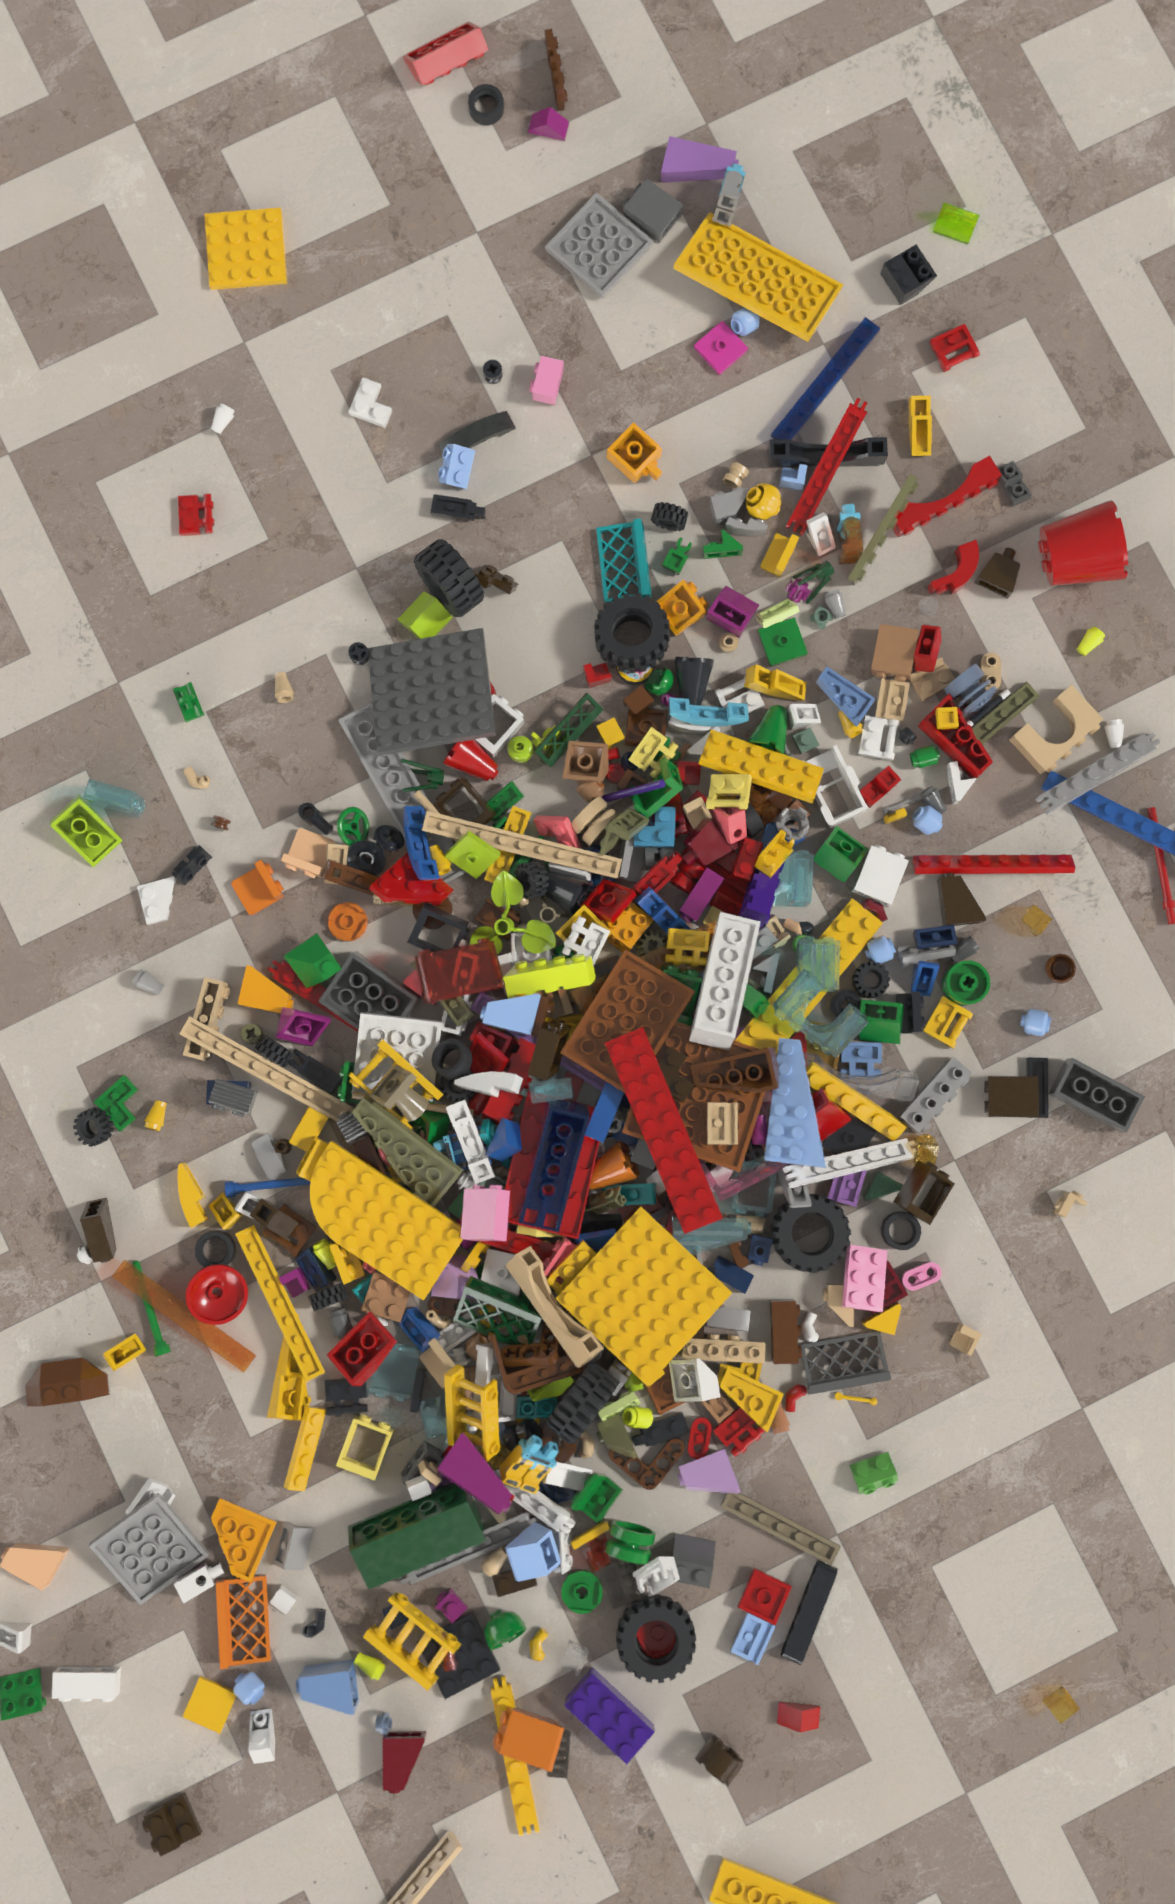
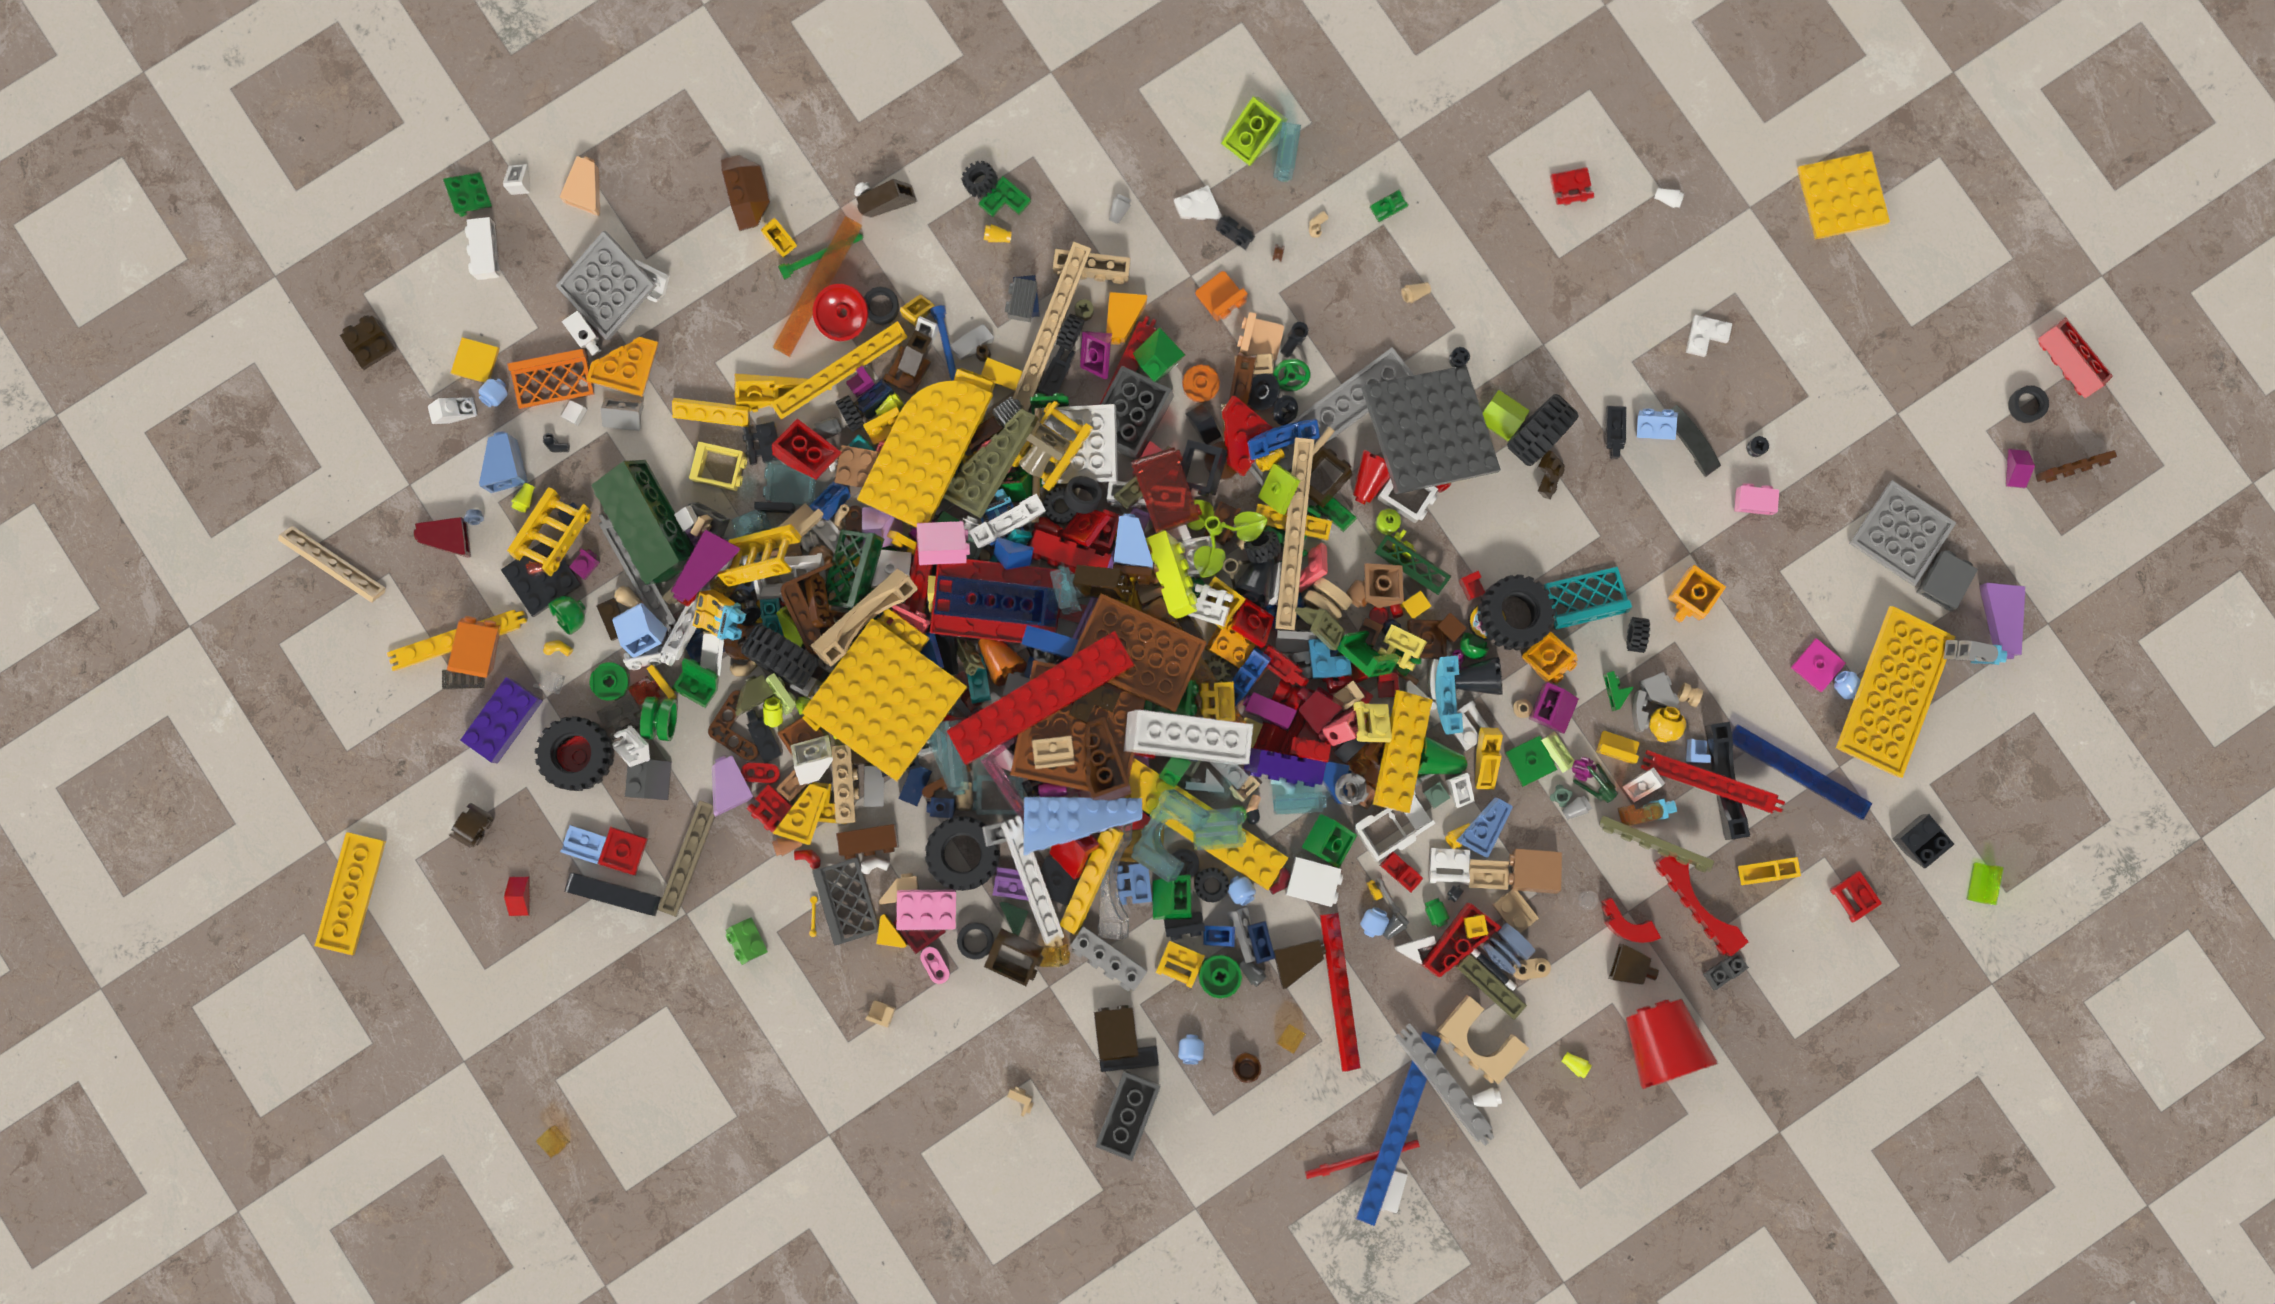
camera: 80 degrees right, 0 degrees up
(190, 1195) = (927, 275): yellow slope -> none
(391, 924) = (1204, 424): none -> black slope
(434, 776) = (1349, 445): dark green plant -> none
(490, 1083) = (1064, 532): white slope -> none
(633, 791) = (1361, 632): dark purple bar -> none
(676, 558) = (1598, 647): green plate -> none
(774, 854) = (1318, 774): yellow hinge -> none
(927, 648) = (1544, 902): red brick -> none

